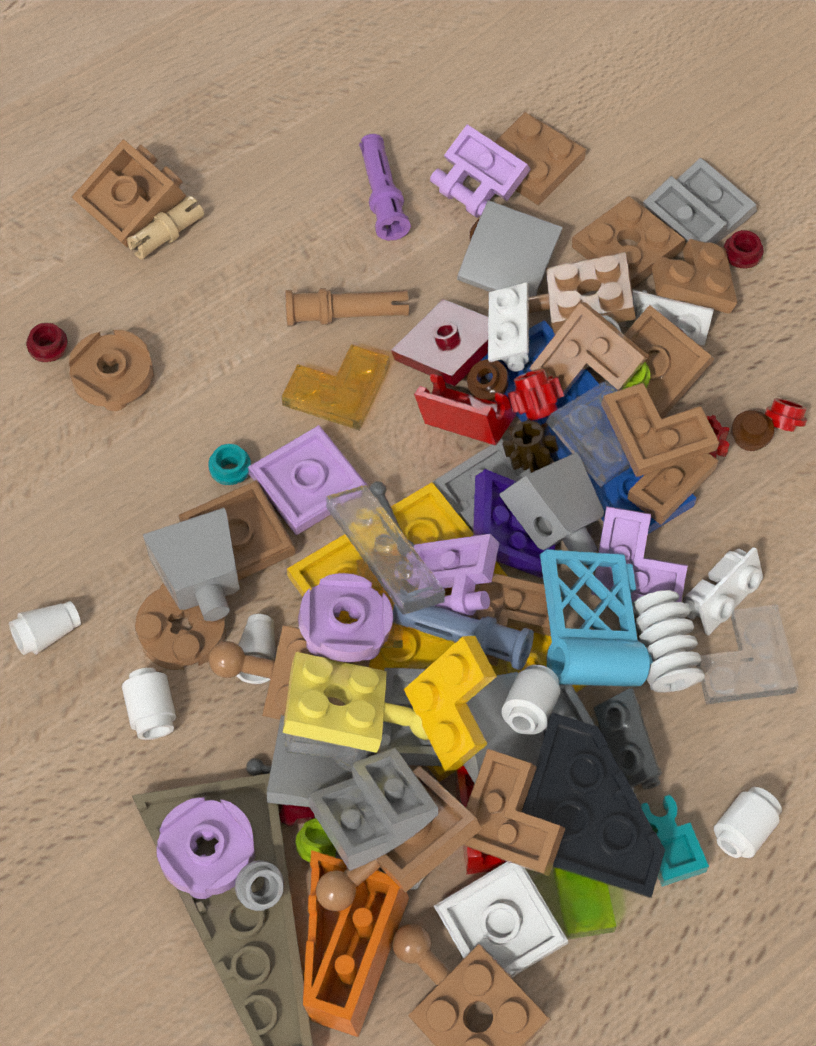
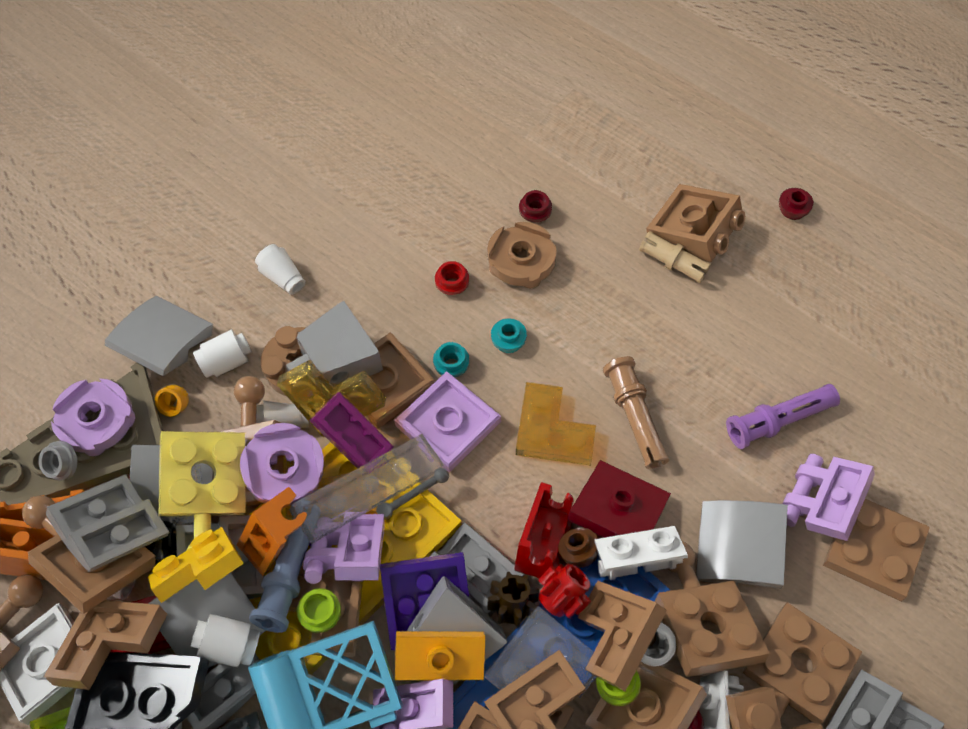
camera: 80 degrees right, 0 degrees up
(99, 774) = (158, 335): none -> light grey slope
(115, 436) = (448, 271): none -> red plate
(132, 106) = (795, 203): none -> dark red plate
(202, 760) = (166, 398): none -> light orange hinge
(217, 412) = (512, 343): none -> teal plate
(266, 582) = (311, 391): none -> clear yellow plate
(313, 556) = (350, 431): none -> magenta plate
(422, 627) = (268, 531): none -> orange hinge
(516, 607) = (318, 610): none -> lime plate
(583, 506) = (439, 655): none -> light orange plate

